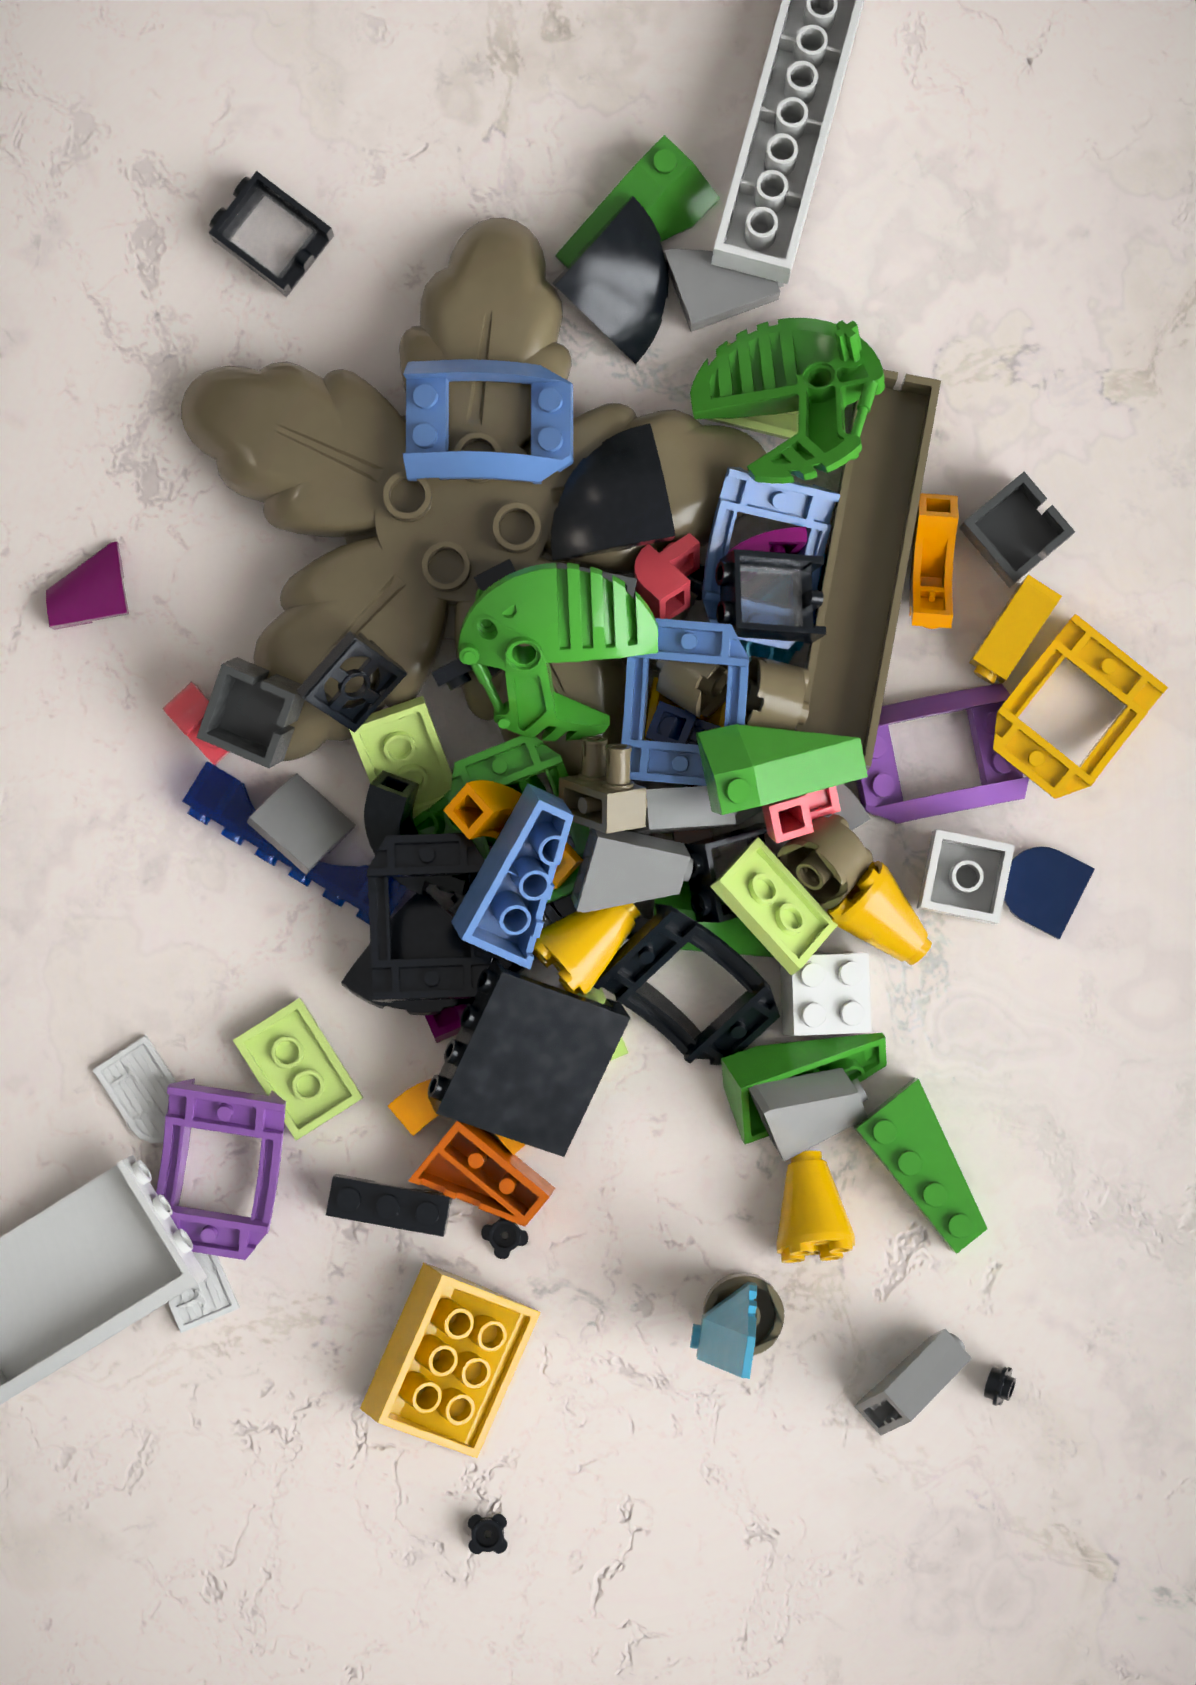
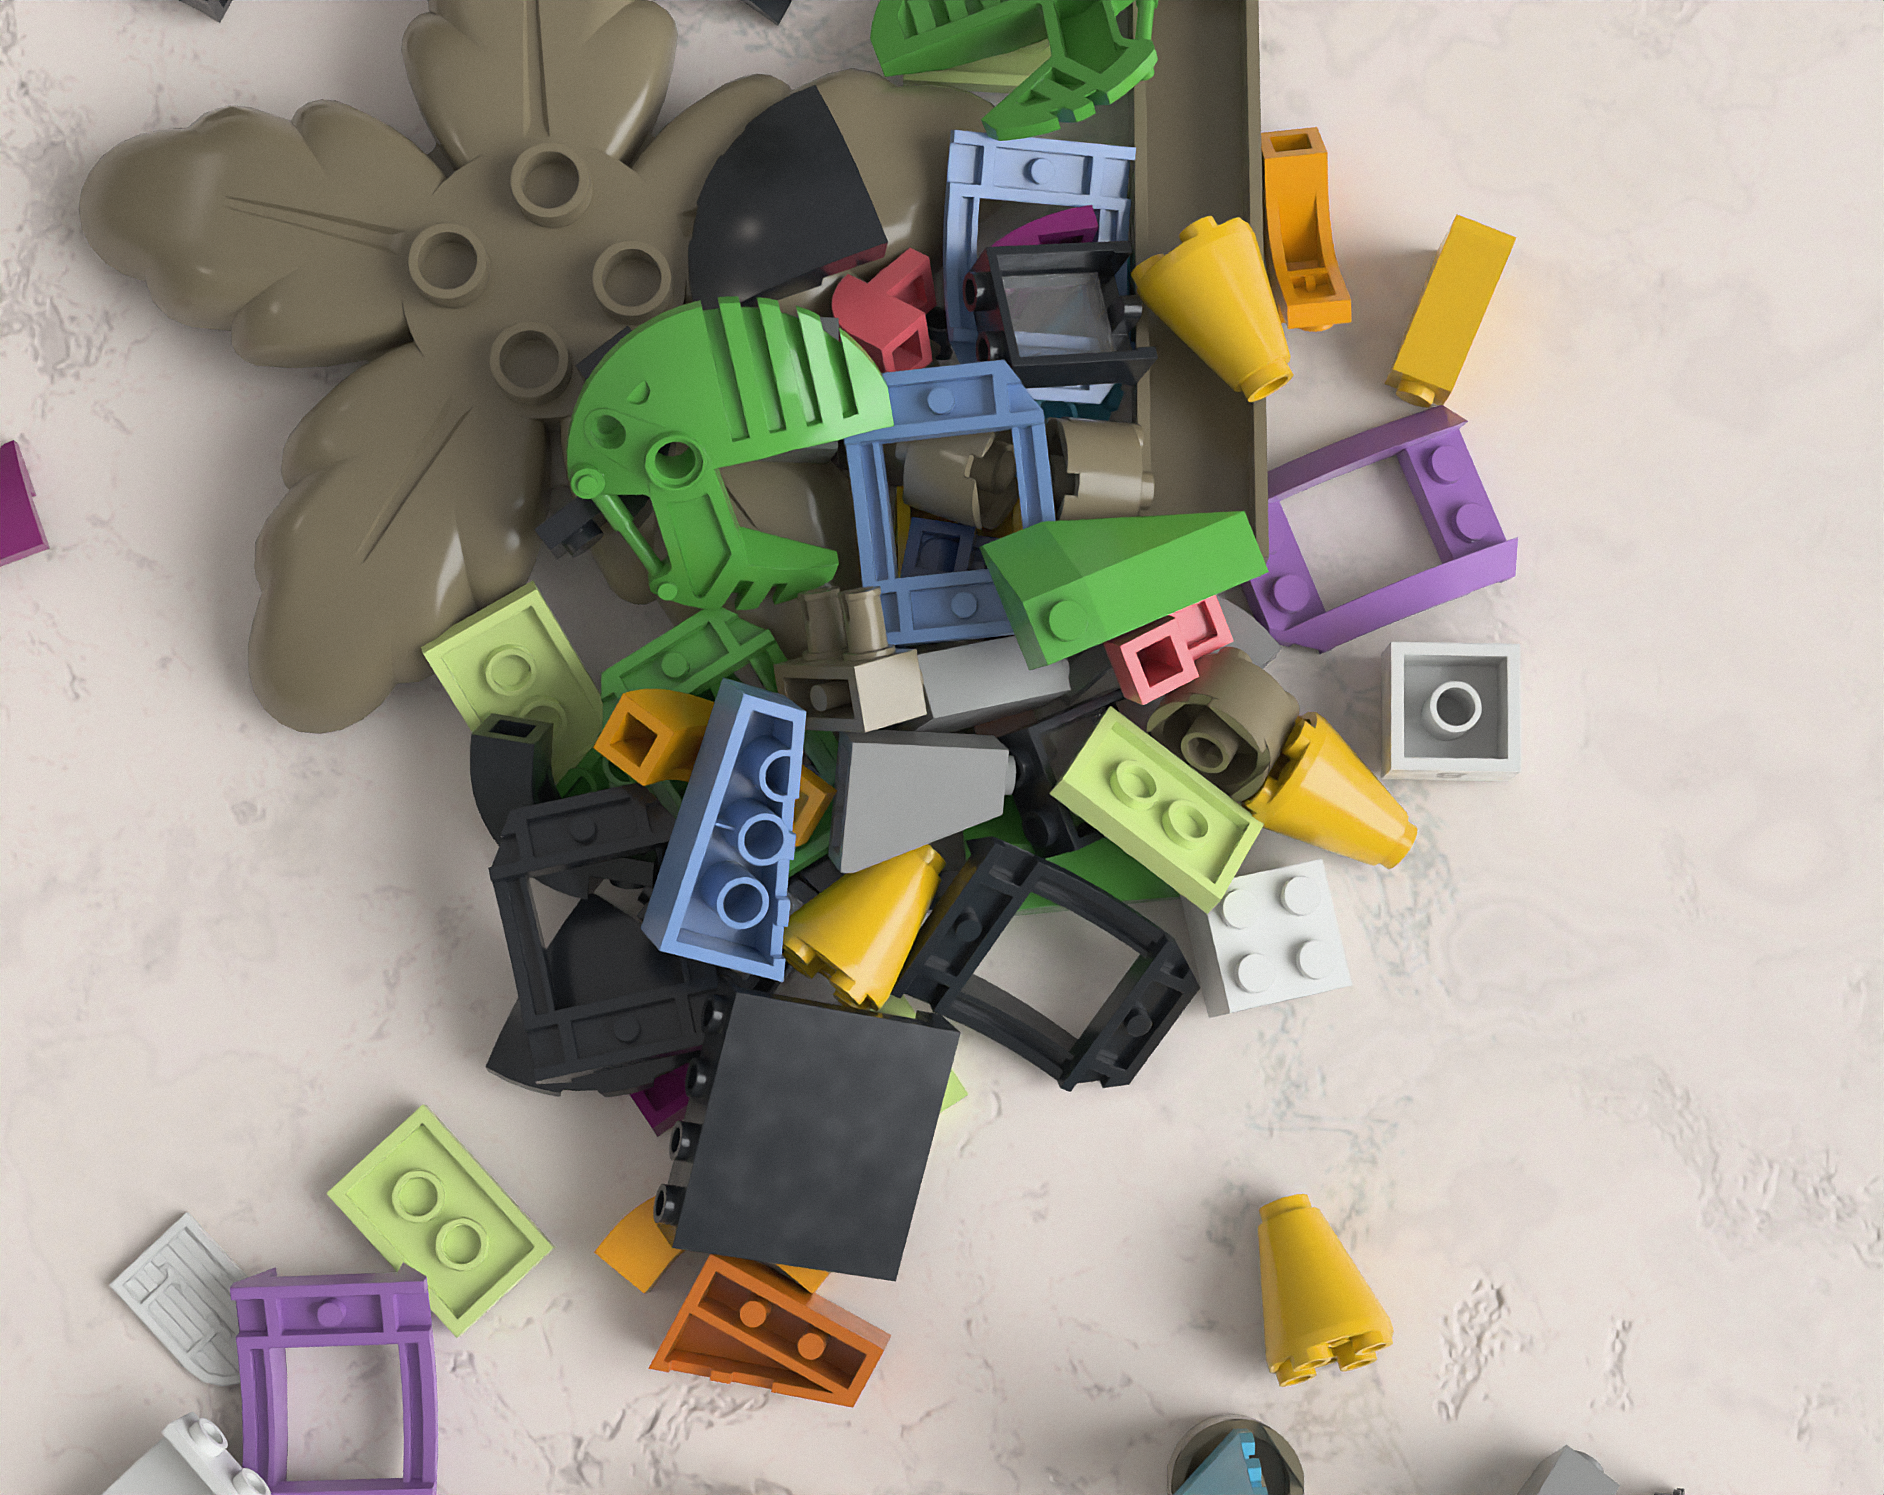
camera: 15 degrees left, 5 degrees down
(187, 713) = (193, 695): coral brick -> none
(227, 802) = (254, 813): clear blue arch -> none
(251, 712) = (259, 653): dark grey piece -> none
(300, 823) = (376, 824): light grey slope -> none
(356, 714) = (428, 626): black piece -> none
(388, 1205) = (625, 1415): black arch -> none
(428, 422) = (461, 141): medium blue wedge -> none
(503, 1246) = (823, 1447): black plate -> none
(808, 1109) = (1274, 1128): light grey slope -> none
(856, 1054) = (1224, 1089): bright green wedge -> none
(871, 607) = (1220, 304): none -> yellow cone
(918, 1156) = (1469, 1176): bright green wedge -> none
(1013, 531) = (1411, 167): dark grey piece -> none
(1046, 888) = (1580, 709): dark blue tile -> none
(1109, 669) = (1604, 347): yellow wedge -> none

